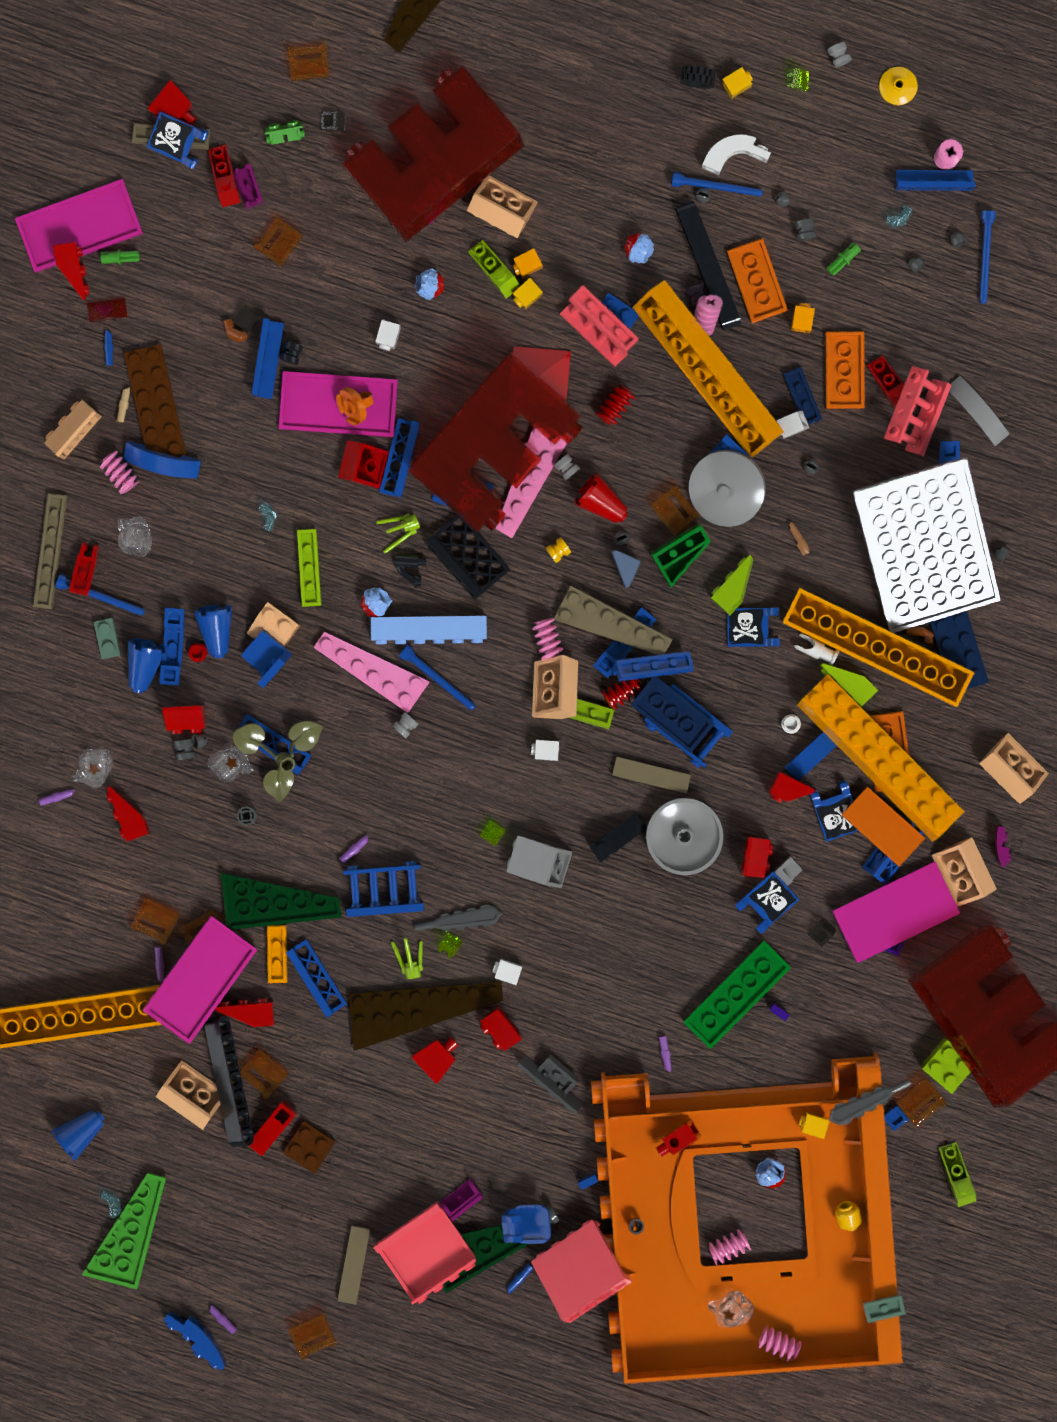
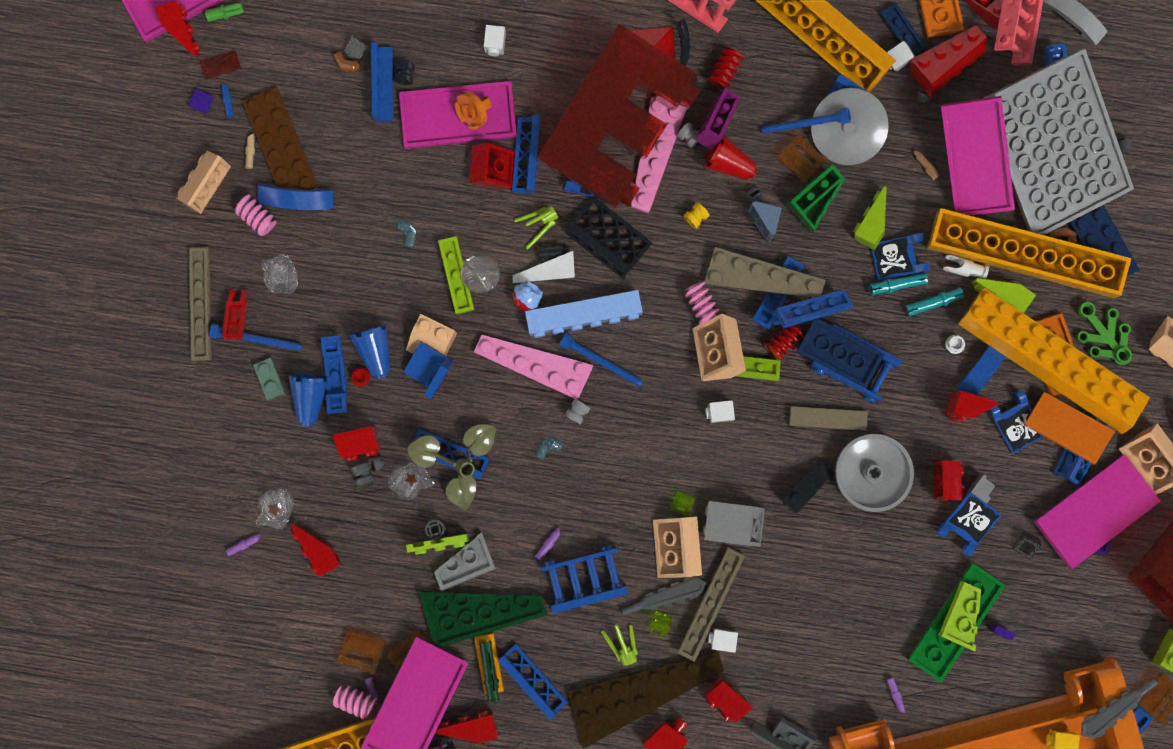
camera: 10 degrees left, 5 degrees down
(82, 345) = (201, 101): none -> dark purple tile
(142, 969) = (355, 703): none -> bright pink piece
(247, 830) = (437, 544): none -> lime wing
(273, 854) = (467, 564): none -> light grey wing
(276, 962) = (489, 672): none -> dark green pin
(333, 571) = (480, 273): none -> clear piece
(371, 752) = (548, 445): none -> clear light blue arm
(409, 579) = (556, 268): none -> white sticker
(479, 874) = (677, 547): none -> light nougat slope
(502, 934) = (711, 604): none -> dark tan tile
(580, 368) = (685, 43): none -> black piece
(596, 457) = (718, 119): none -> magenta brick
(719, 479) = (842, 116): none -> blue piece
(741, 990) = (962, 616): none -> lime wing
(746, 654) = (891, 285): none -> teal pin
(779, 678) = (942, 299): none -> teal pin
(837, 438) = (943, 62): none -> red wedge
(844, 545) = (978, 156): none -> dark pink tile
(942, 742) = (1106, 335): none -> bright green plant

